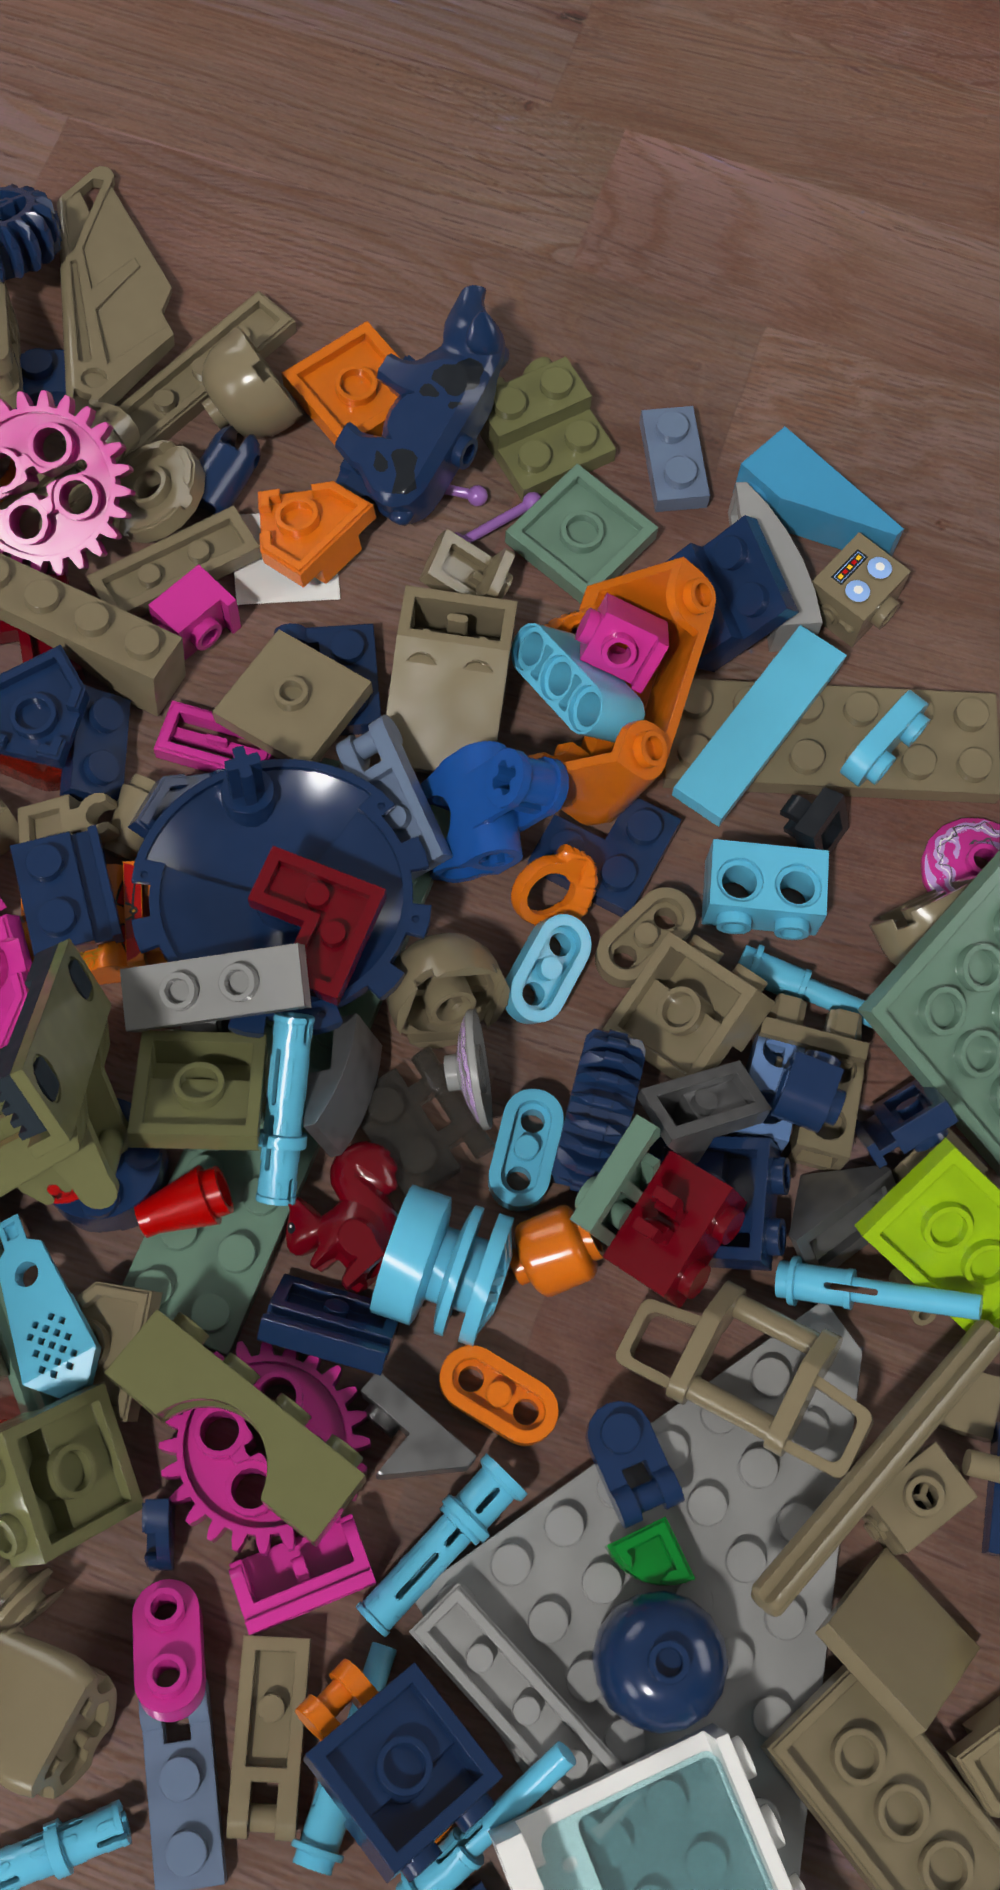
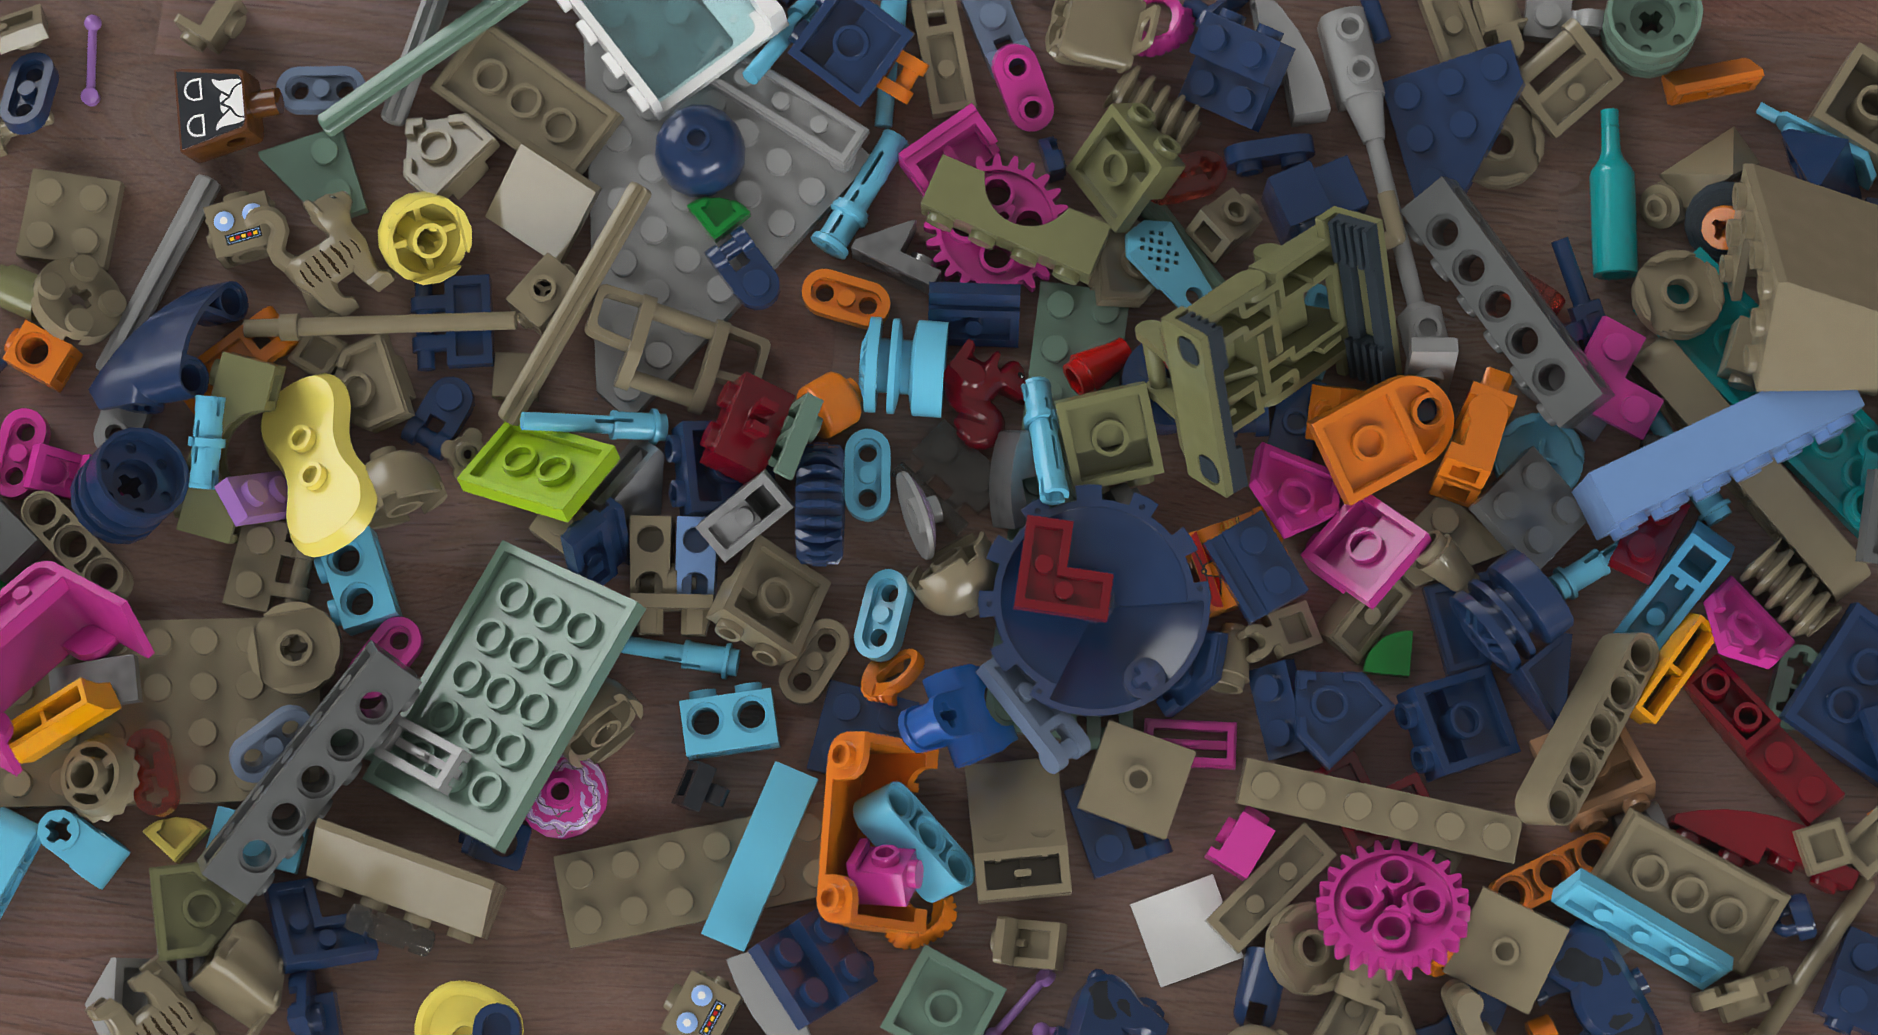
camera: 175 degrees right, 10 degrees up
(215, 988) = (1116, 502): light grey plate -> none
(312, 530) = (1170, 948): orange plate -> none
(809, 1091) = (670, 547): dark blue plate -> none
(873, 754) = (646, 878): medium azure plate -> none

